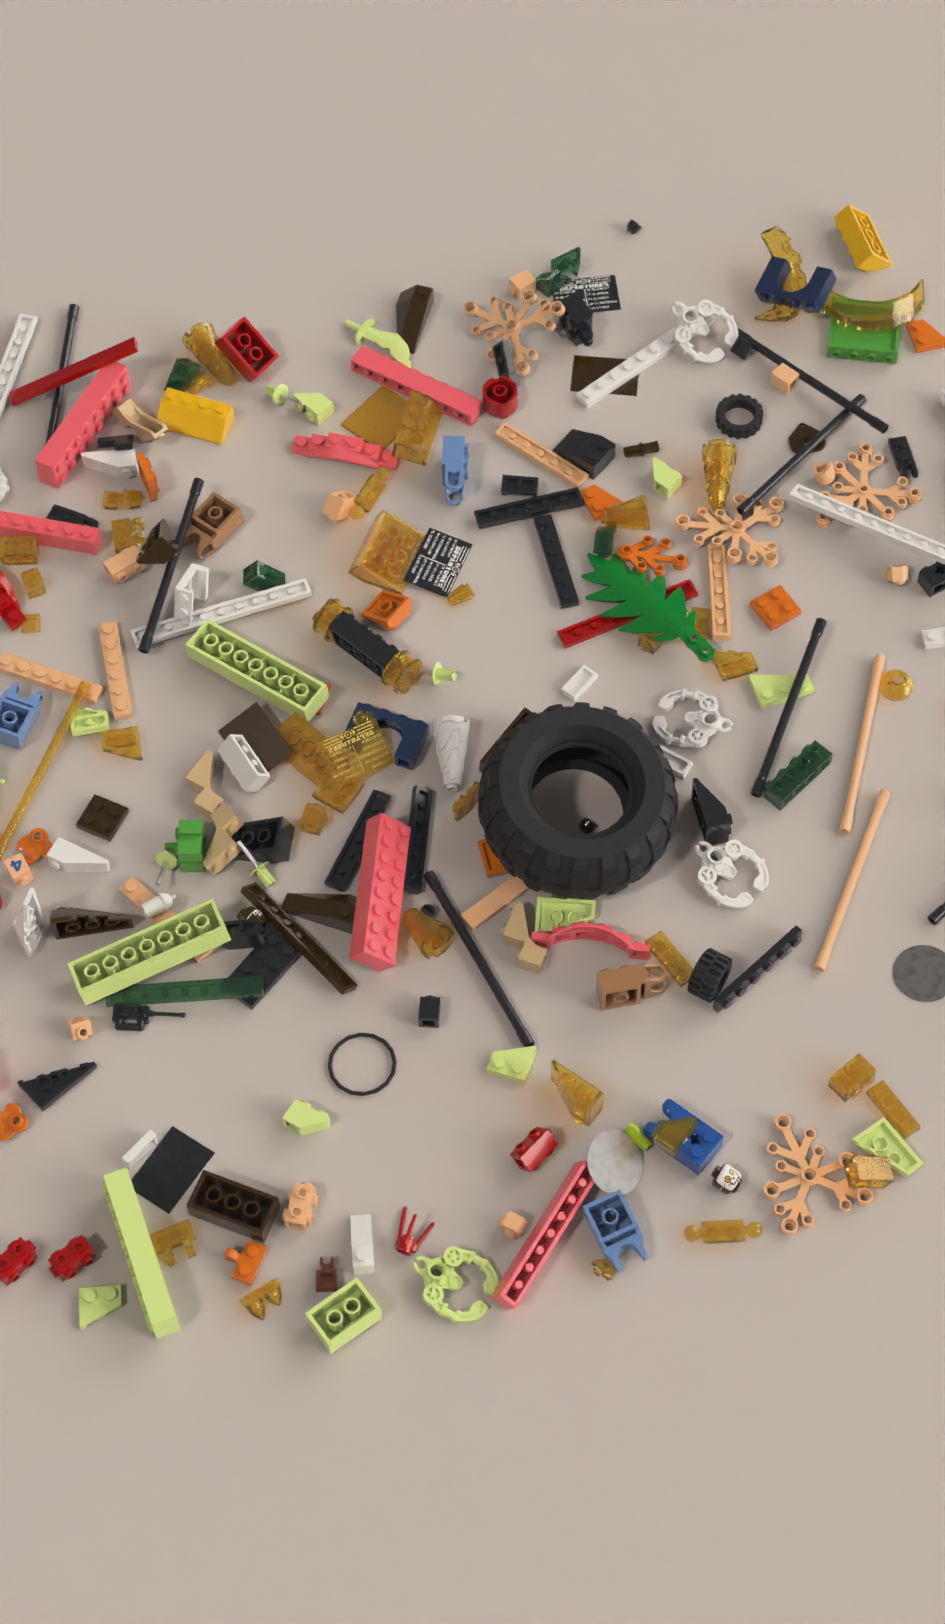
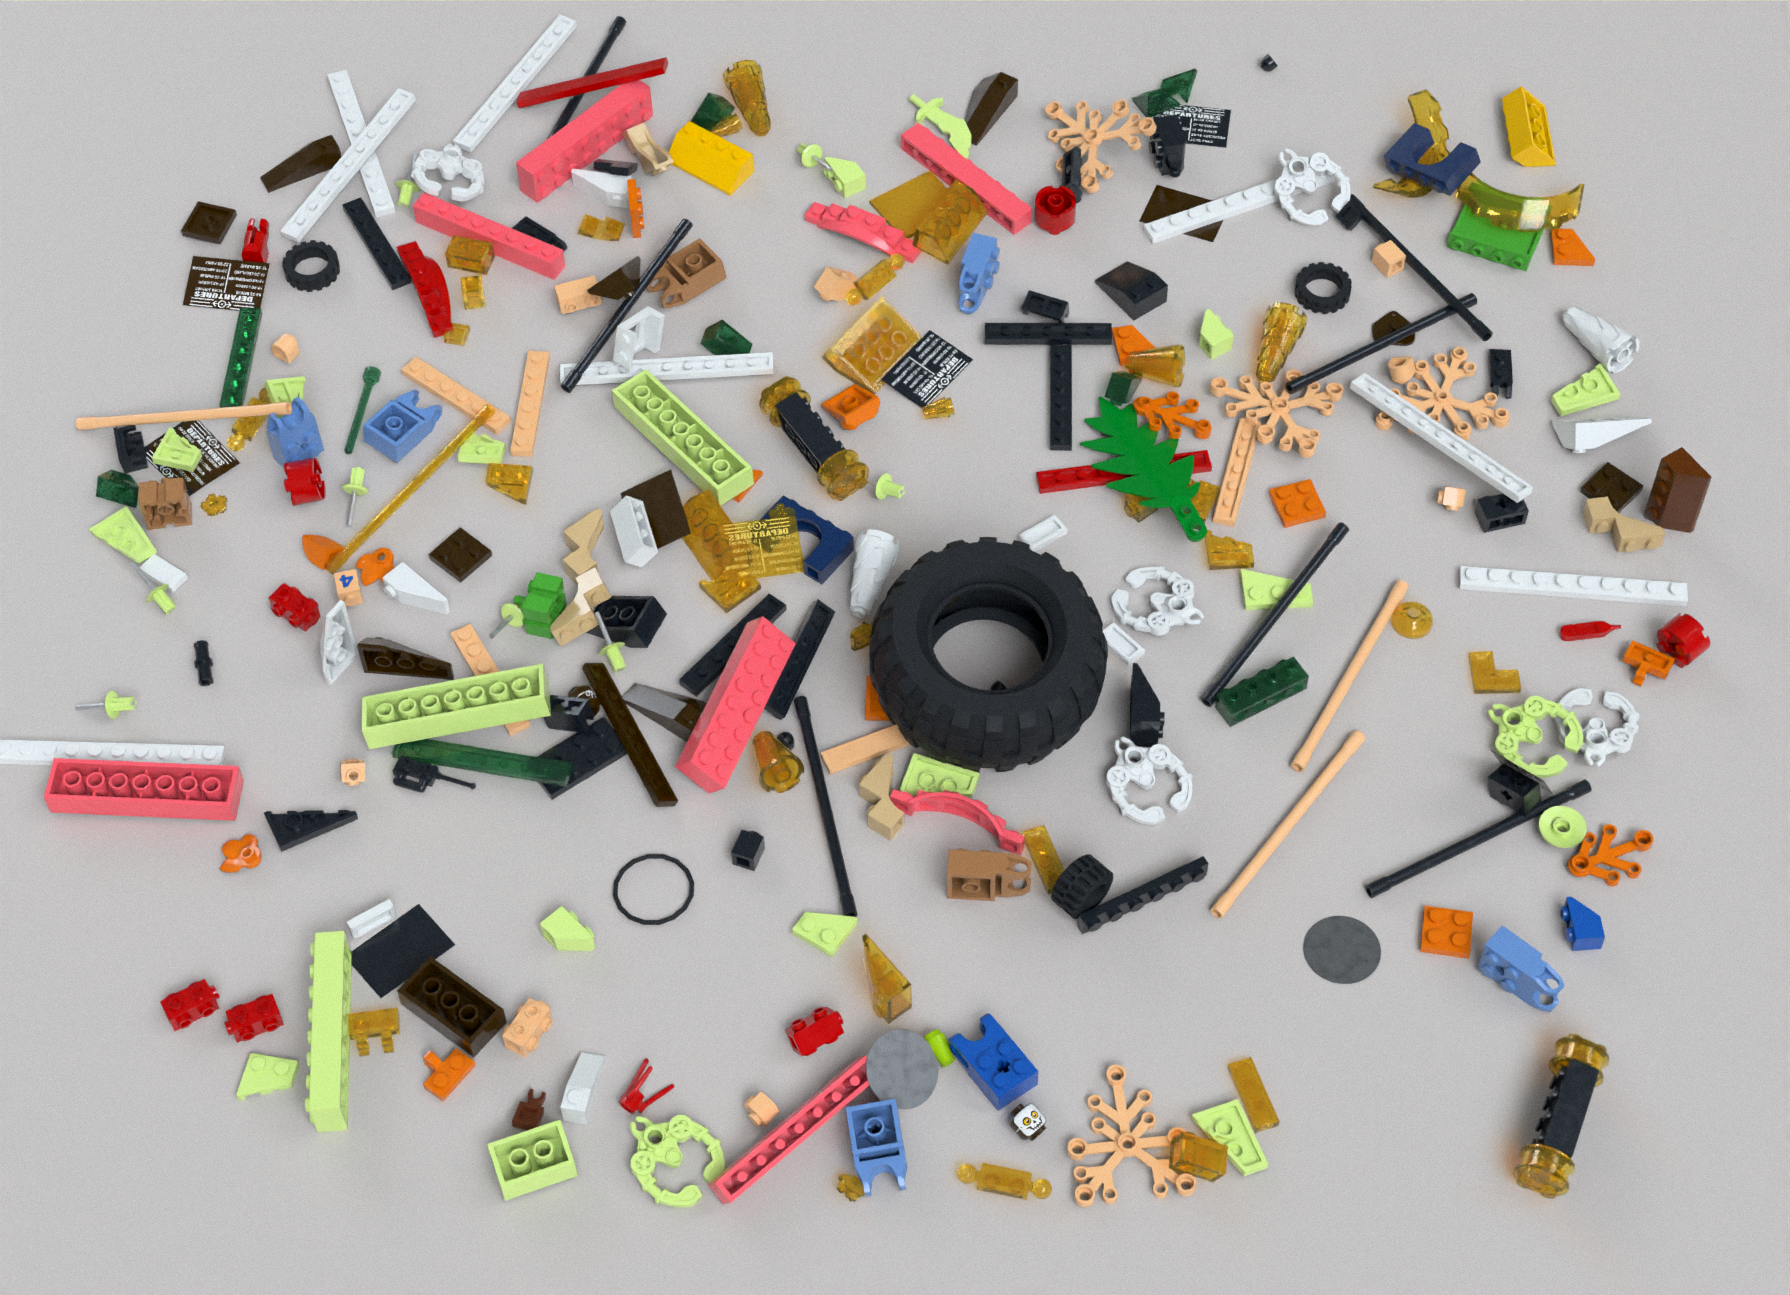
camera: 15 degrees right, 5 degrees down
(122, 533) = (590, 261): clear yellow plate -> none
(157, 905) = (484, 659): white piece -> none
(246, 349) = (788, 99): red brick -> none
(254, 1302) = (439, 1121): clear yellow tile -> none
(313, 819) = (690, 609): clear yellow brick -> none
(520, 283) = (1121, 92): light nougat brick -> none
(541, 455) = (1082, 282): light nougat tile -> none
(641, 449) = (1198, 299): dark brown axle -> none
(673, 1134) = (979, 1052): clear yellow slope -> none
(852, 1078) = (1215, 1045): clear yellow brick -> none

